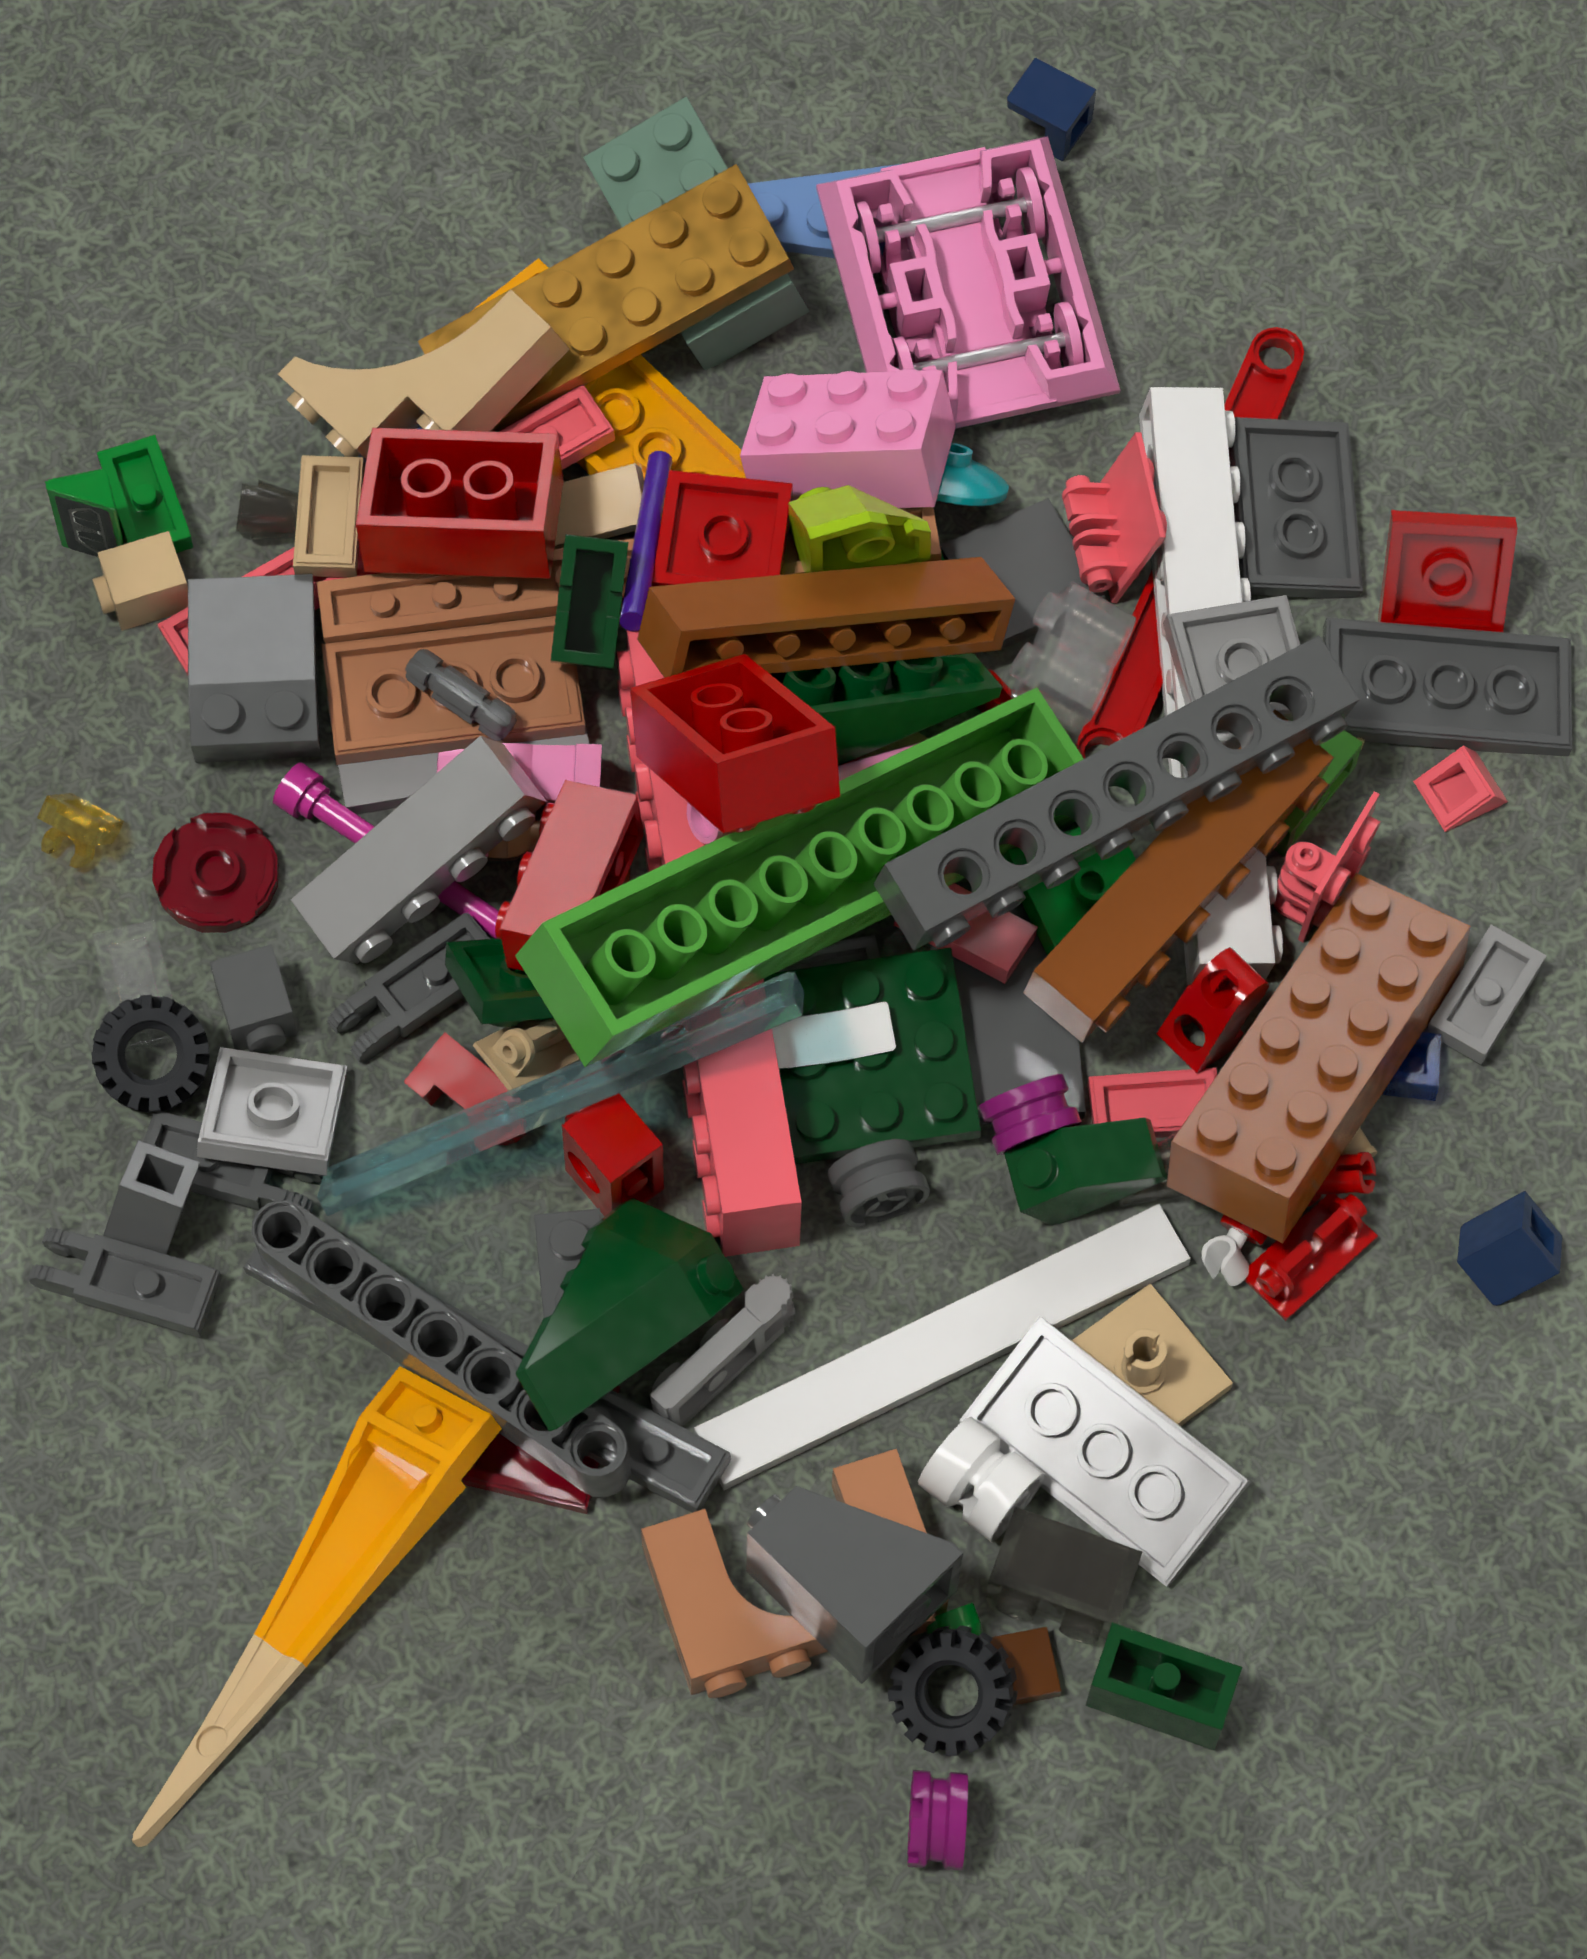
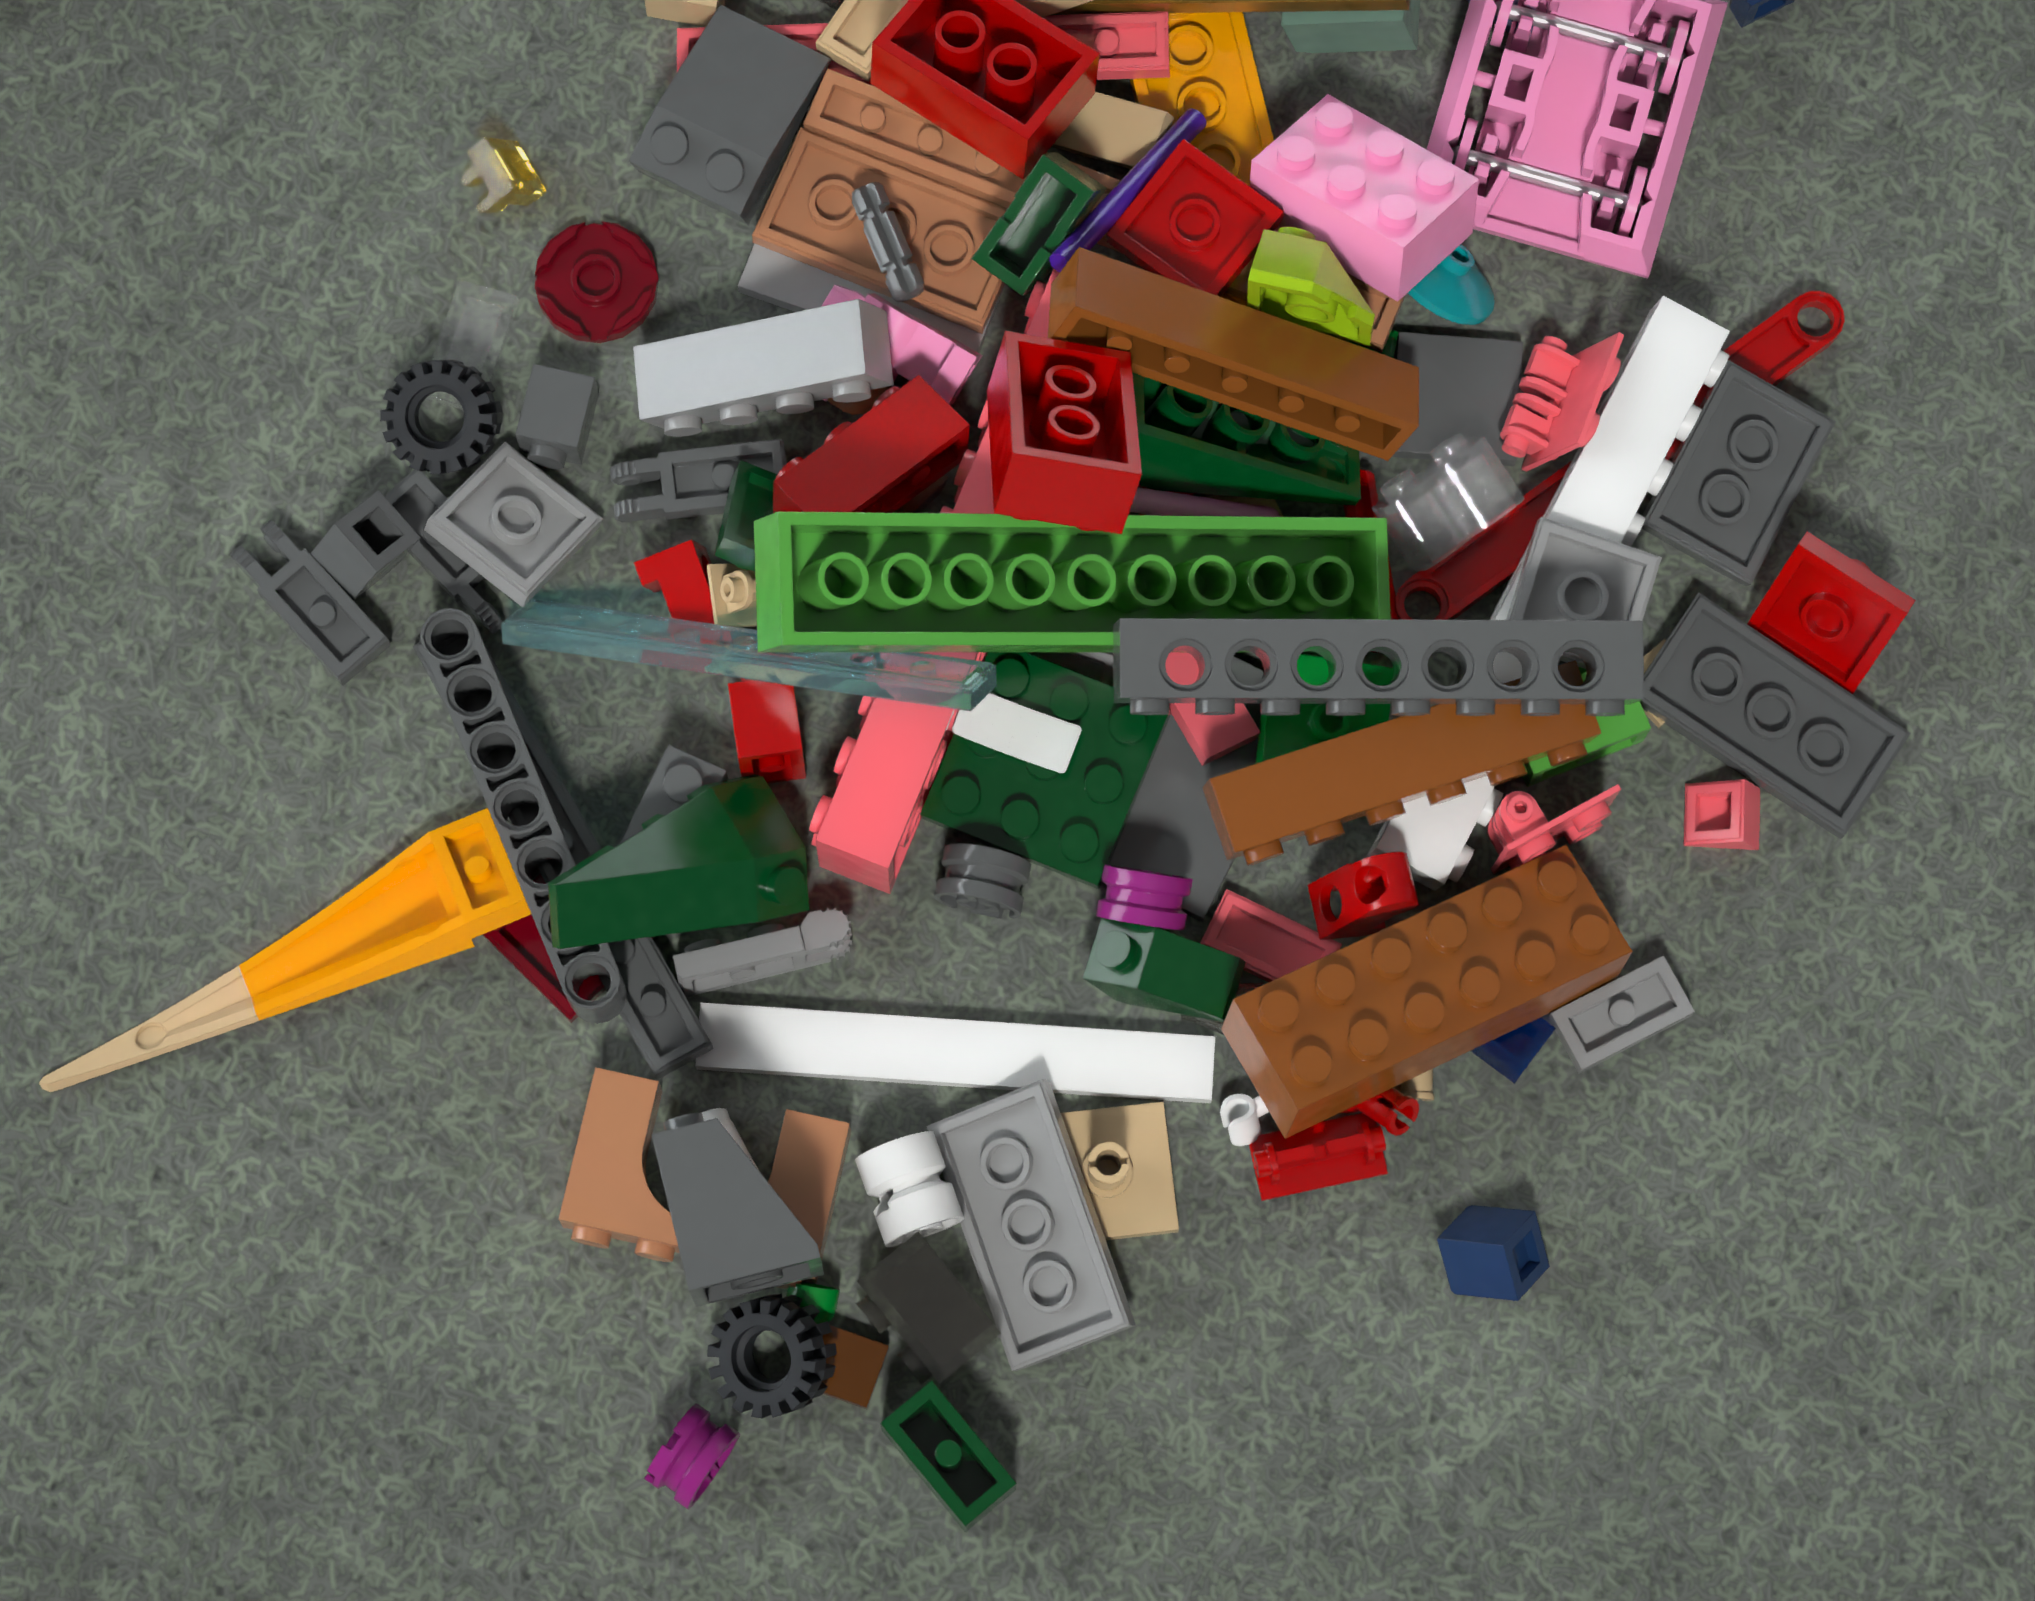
camera: 30 degrees right, 10 degrees up
(306, 795) = (710, 254): dark pink piece -> none

